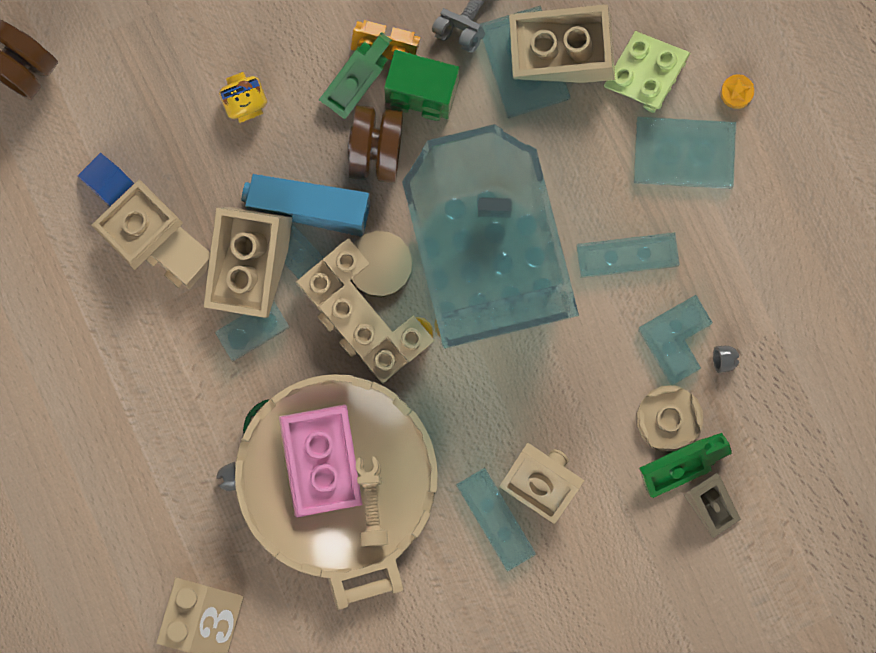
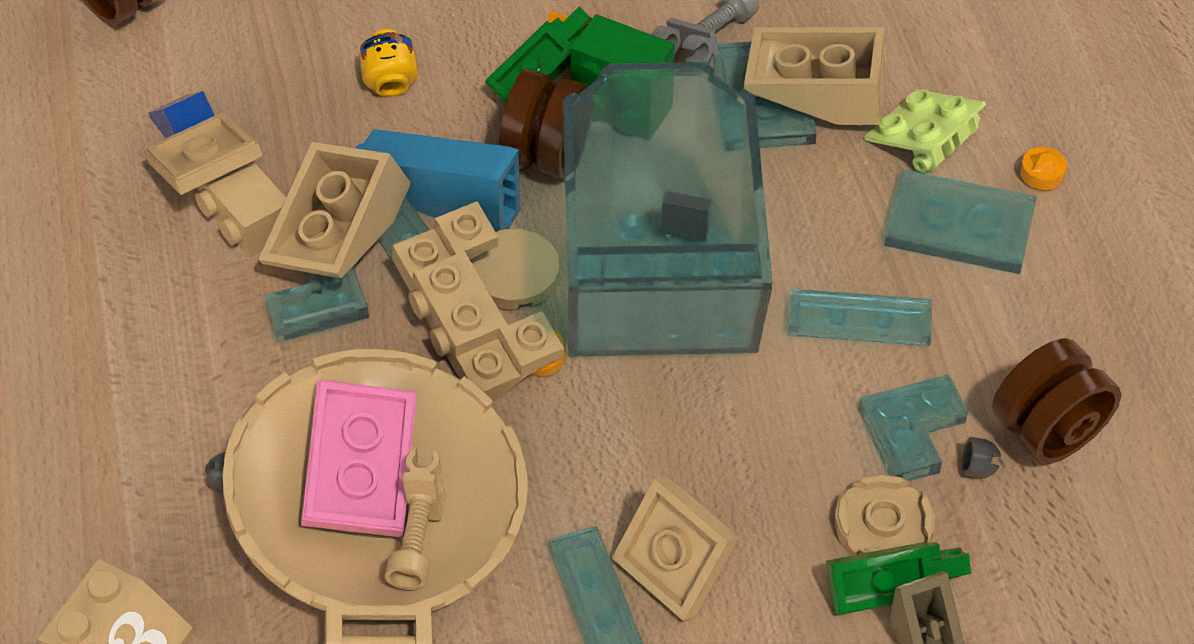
camera: 15 degrees right, 30 degrees down
(773, 316) = (1056, 400): none -> reddish brown wheel

